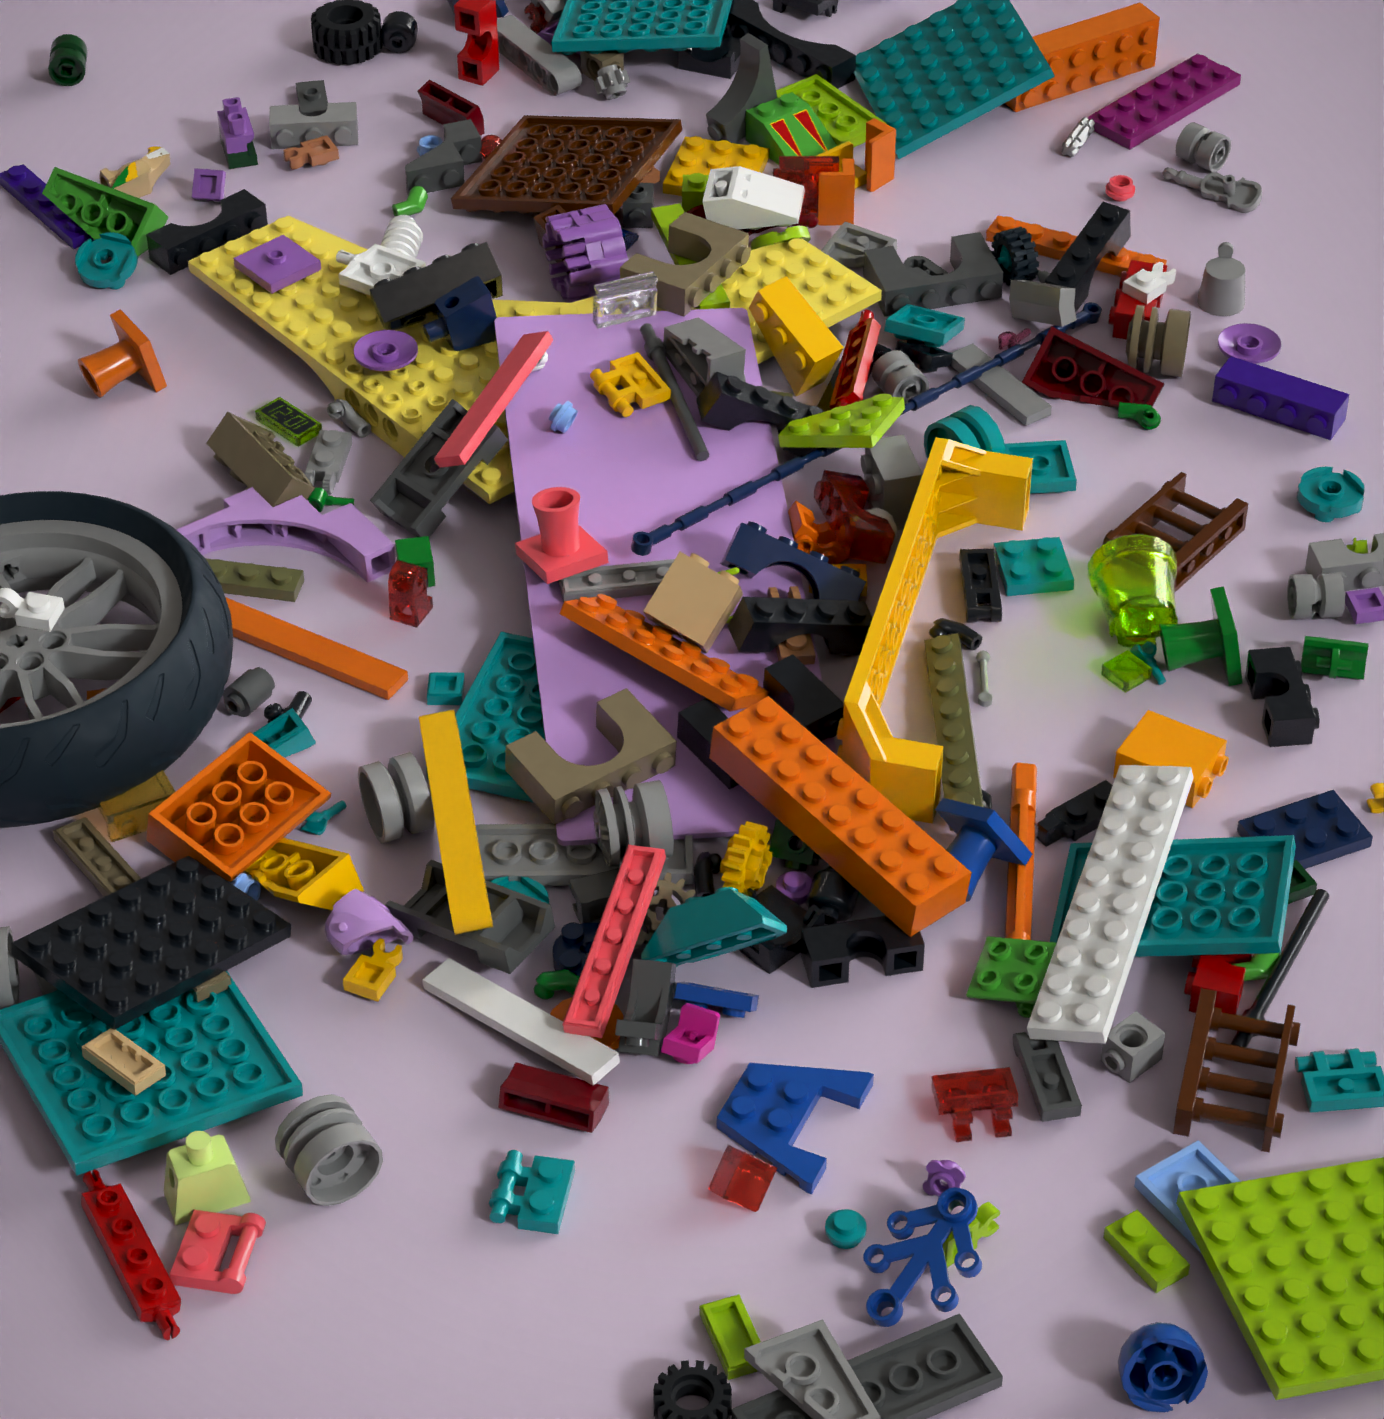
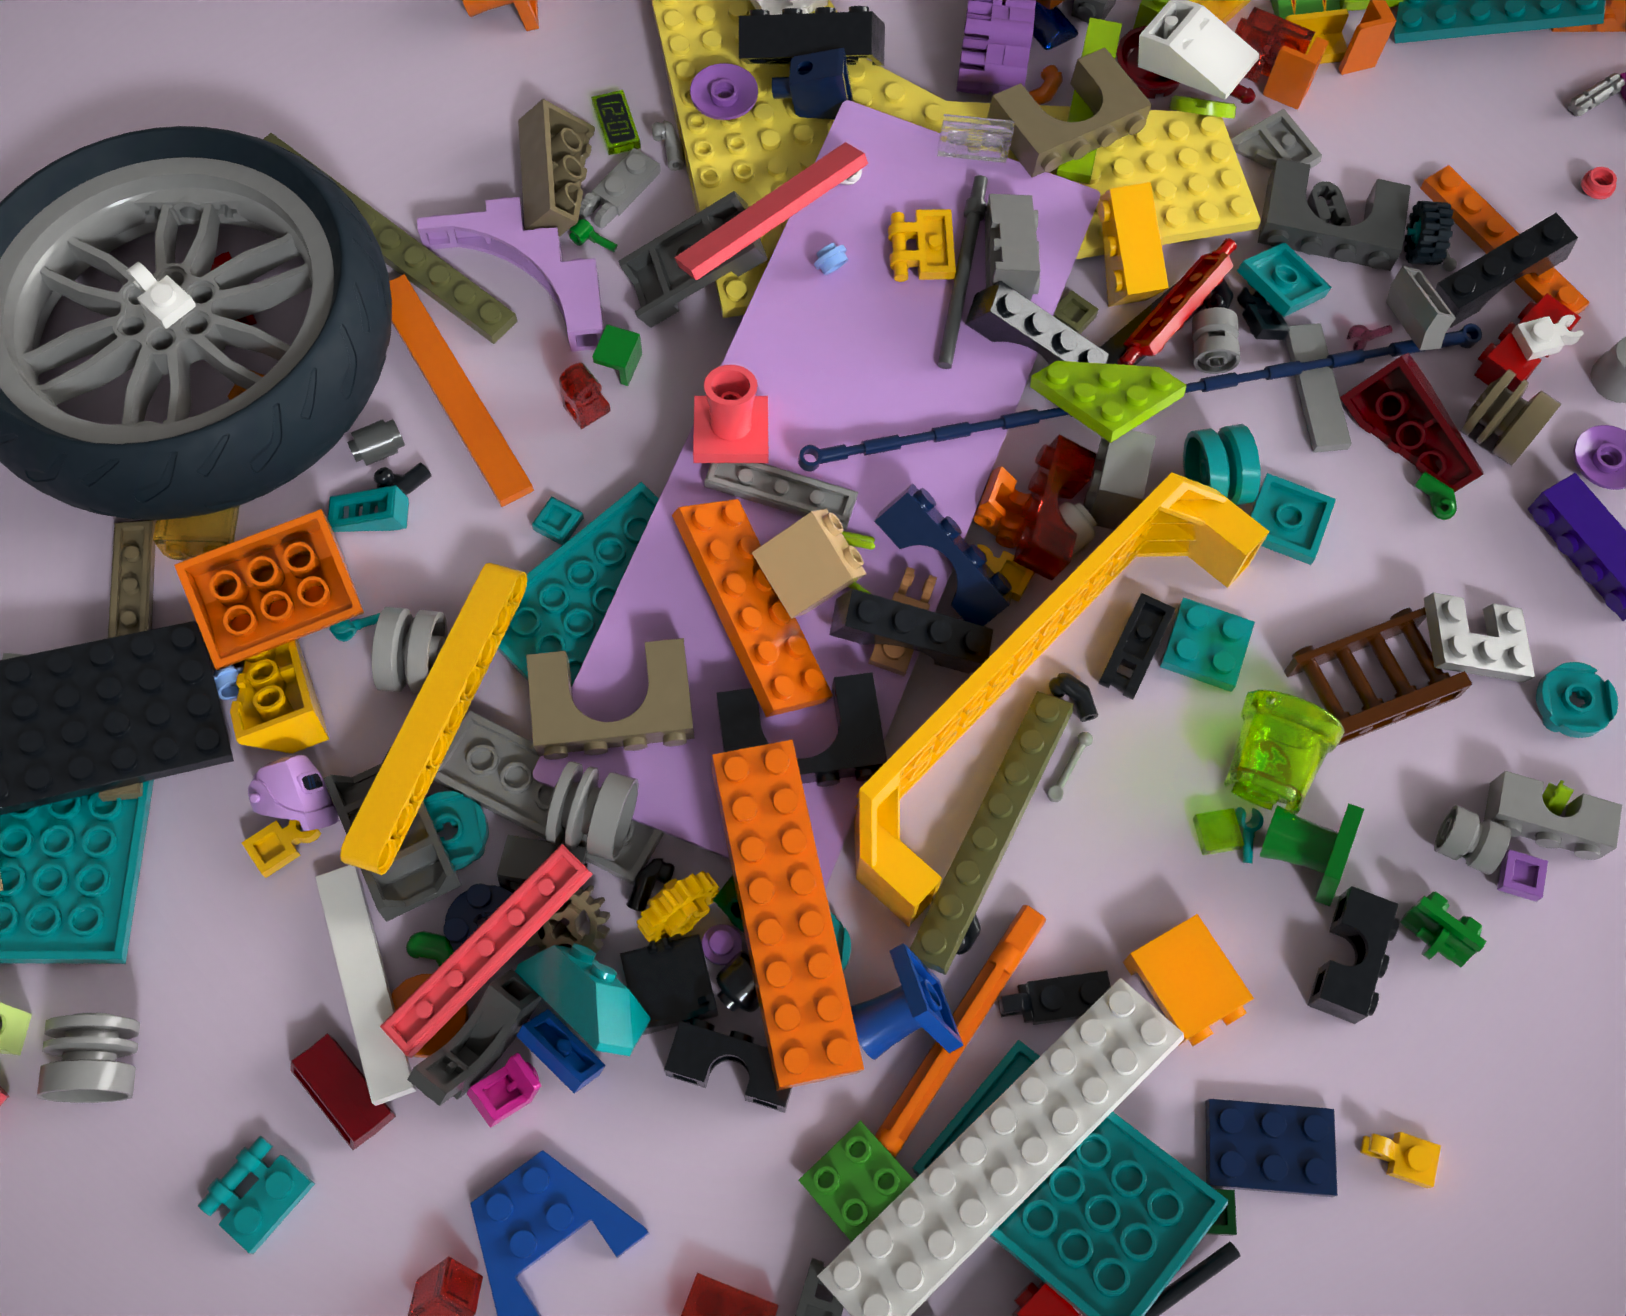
camera: 25 degrees right, 25 degrees up
(1246, 480) = (1499, 654): none -> light grey plate

